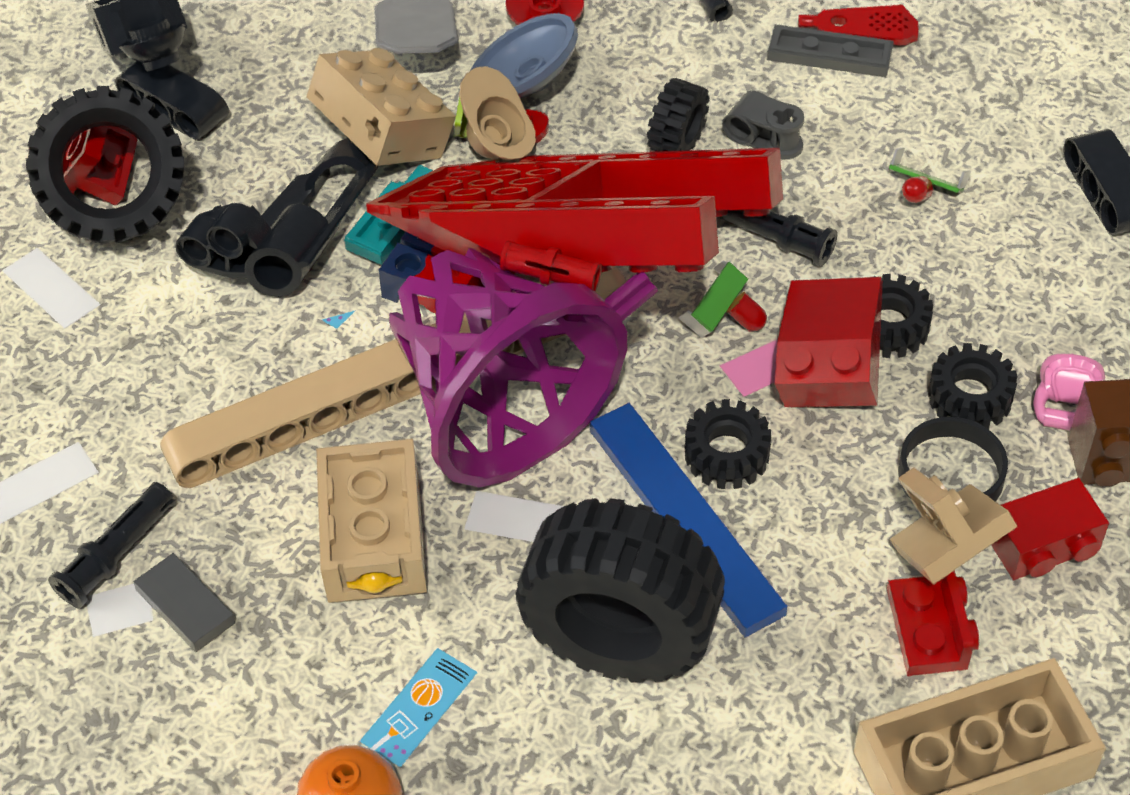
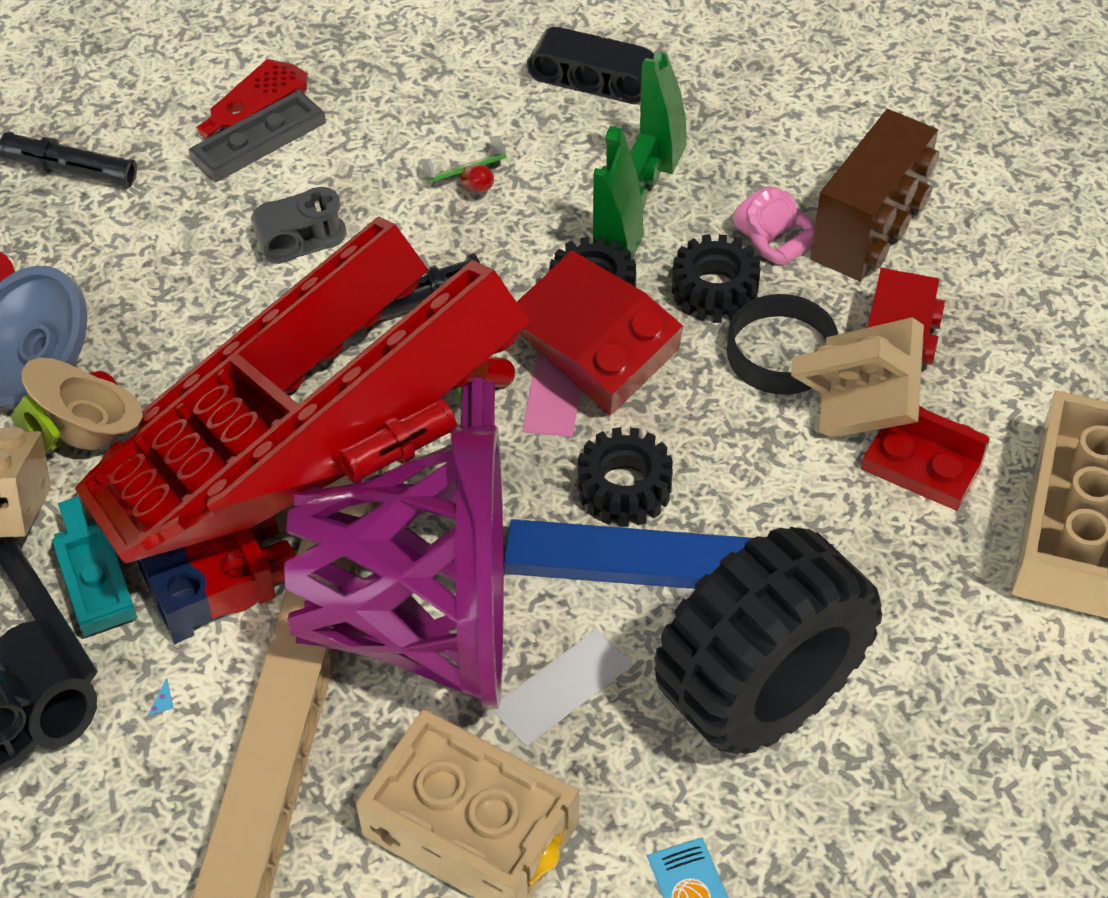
camera: 55 degrees left, 0 degrees up
(678, 116) = (234, 274): black tyre -> none
(1075, 267) = (623, 182): none -> green wedge

